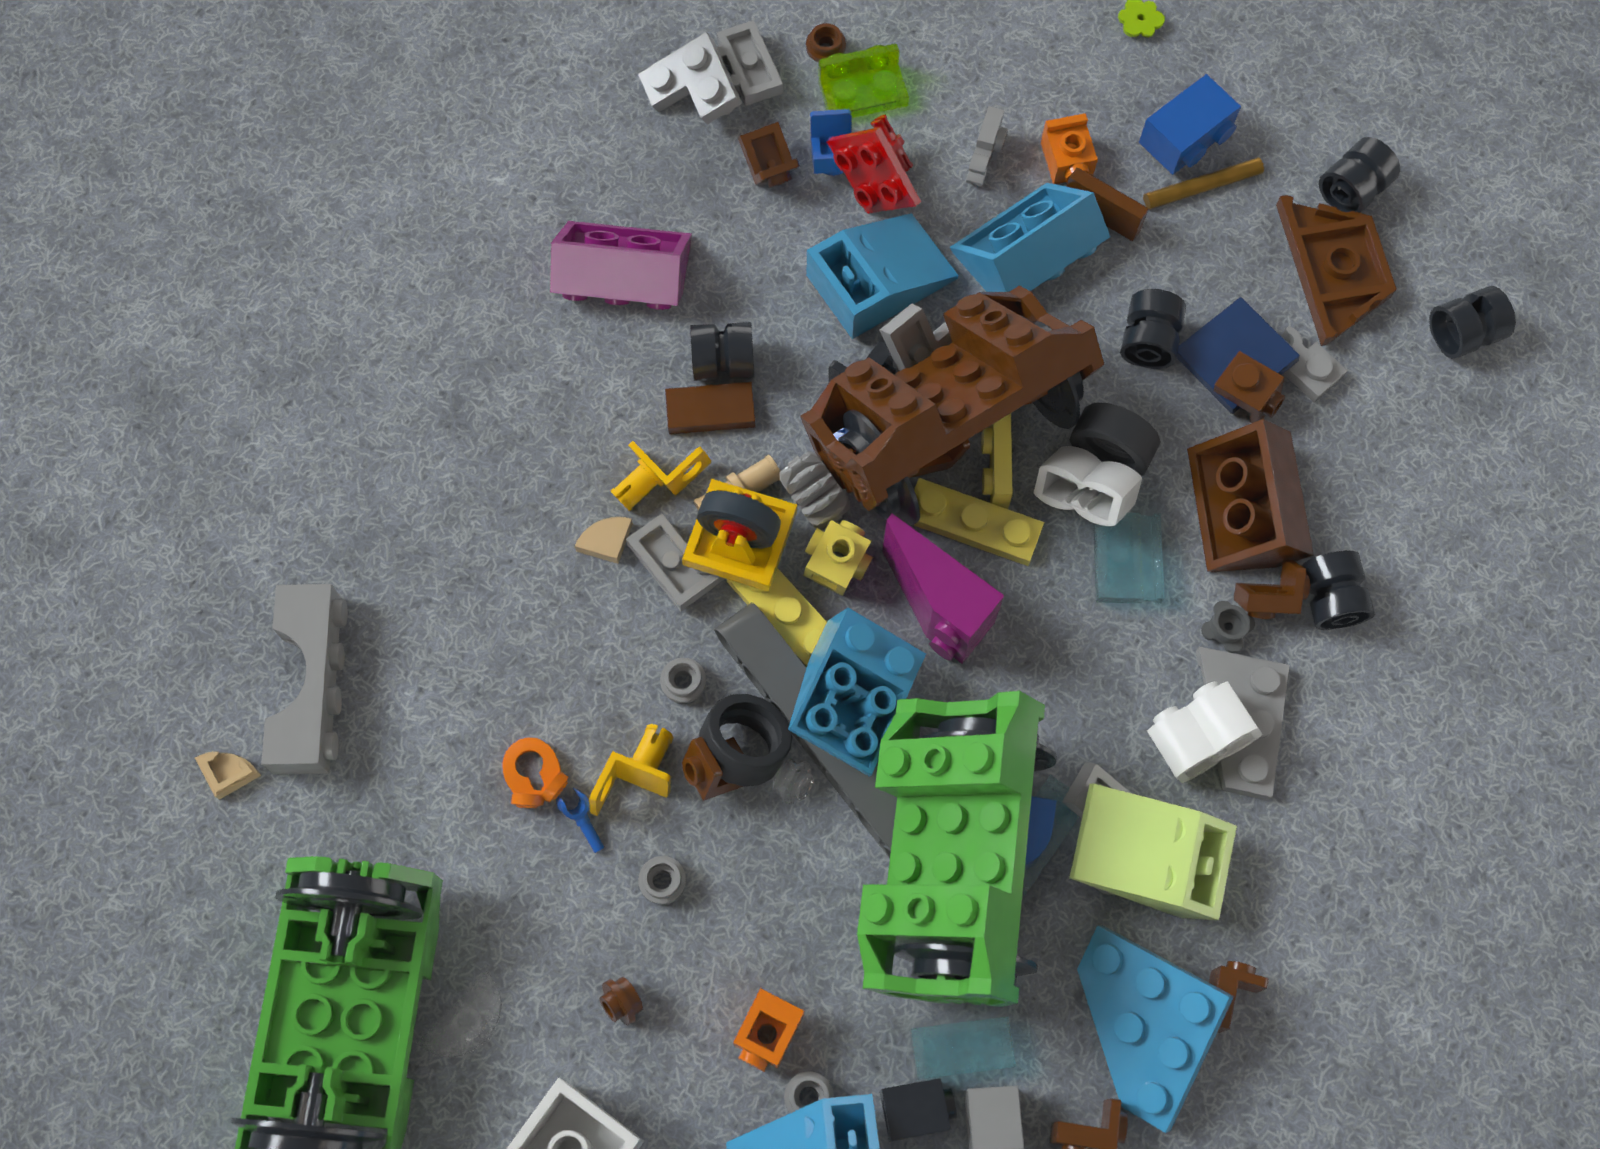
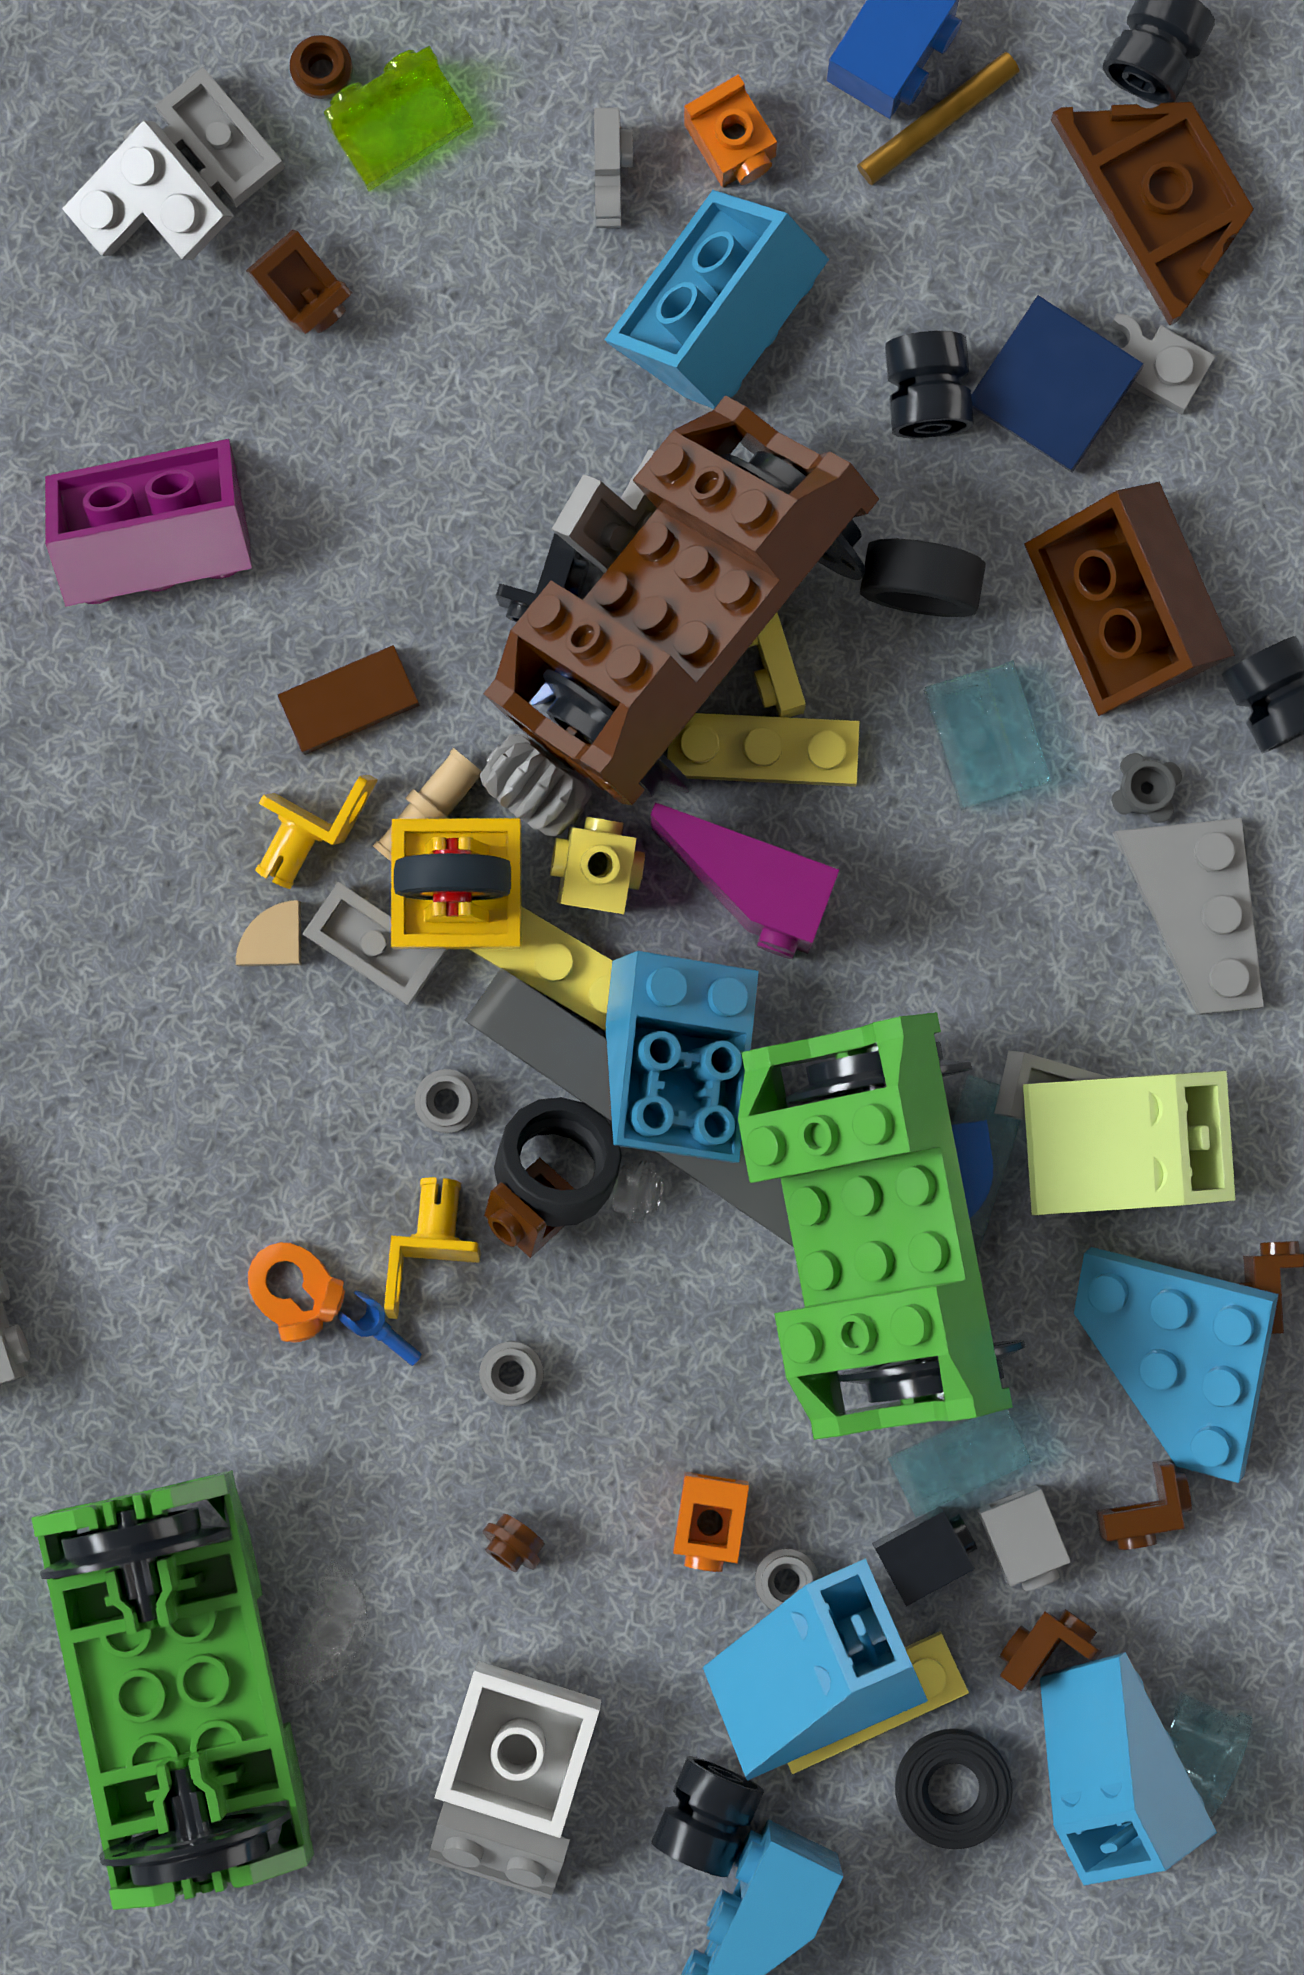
camera: 10 degrees left, 15 degrees up
(722, 351) = (338, 616): black wheel -> none
(822, 128) = (385, 234): blue bracket -> none
(876, 167) = (454, 267): red plate -> none
(877, 271) = (518, 416): dark azure slope -> none
(1091, 487) = (904, 656): white brick -> none
(1118, 210) = (810, 204): reddish brown tile -> none
(1203, 731) = (1151, 952): white brick -> none
(1251, 387) = (1088, 432): reddish brown bracket -> none
(1268, 599) = (1197, 732): reddish brown bracket -> none

